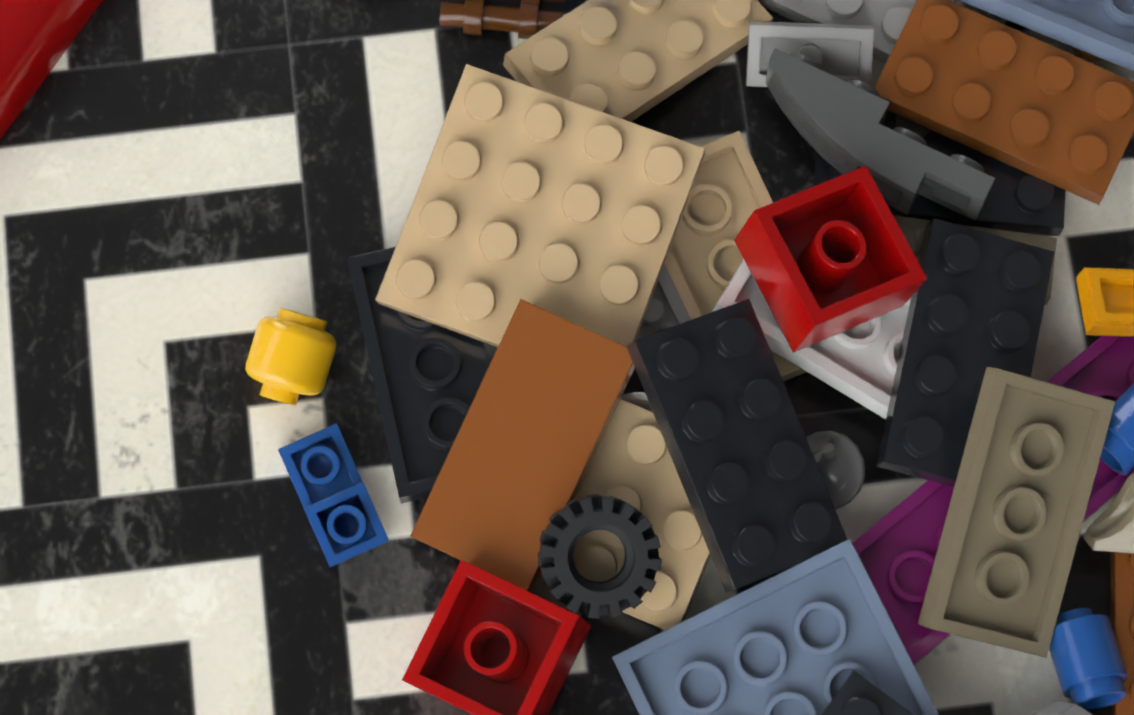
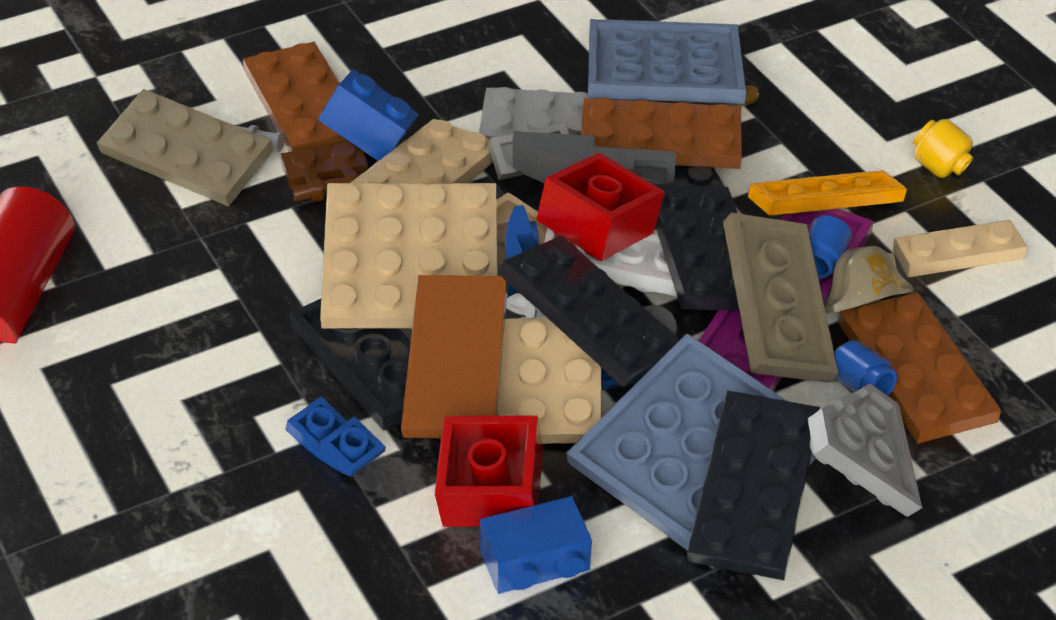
camera: 25 degrees left, 30 degrees down
(290, 356) = (274, 370): yellow head -> none
(628, 584) = (540, 366): black tyre -> none
(695, 264) = (519, 237): none -> blue slope

